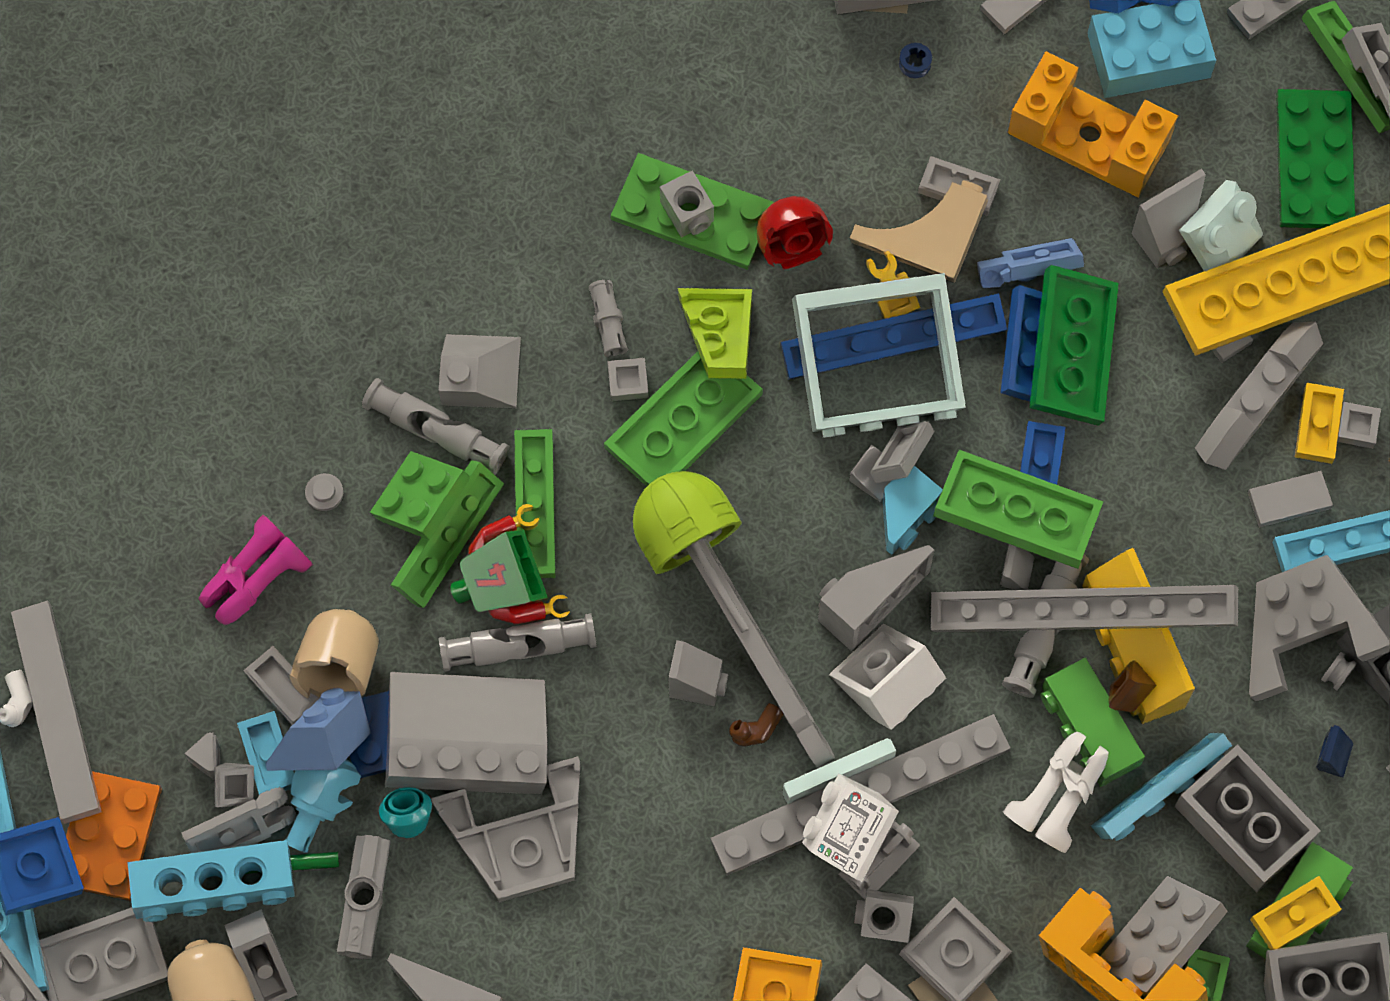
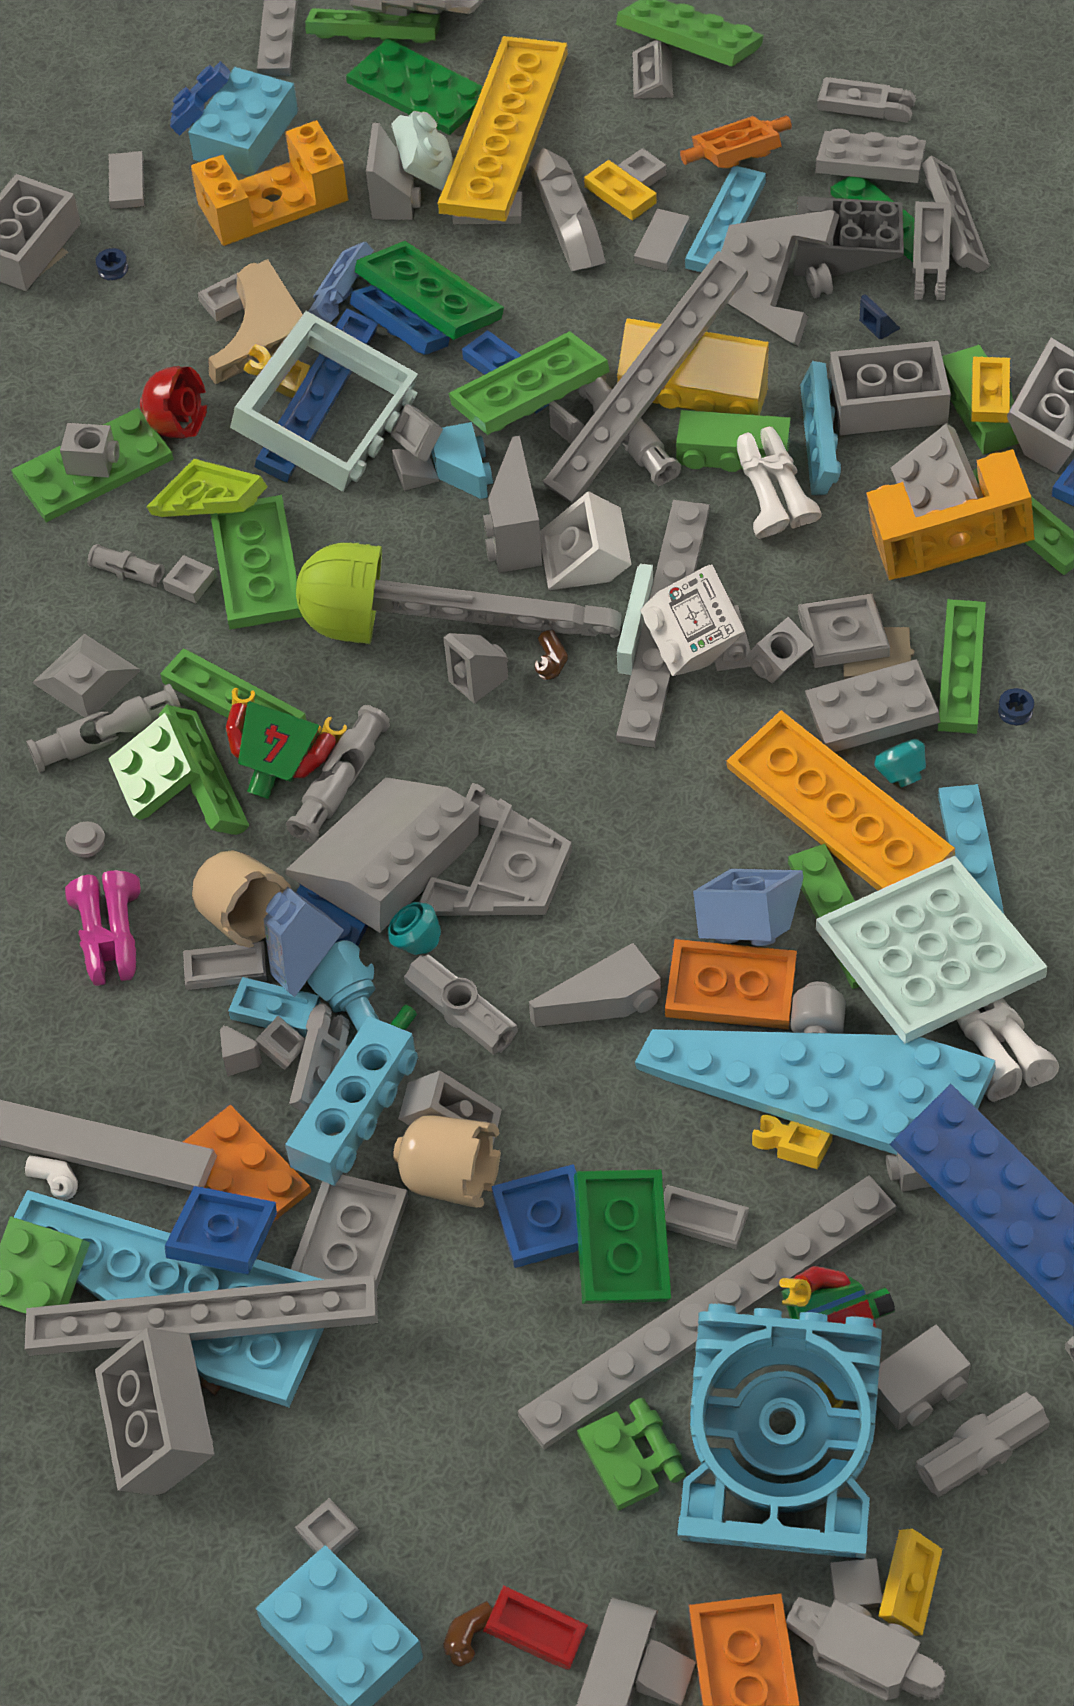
camera: 50 degrees left, 15 degrees down
(1130, 688) = (729, 393): reddish brown slope -> none

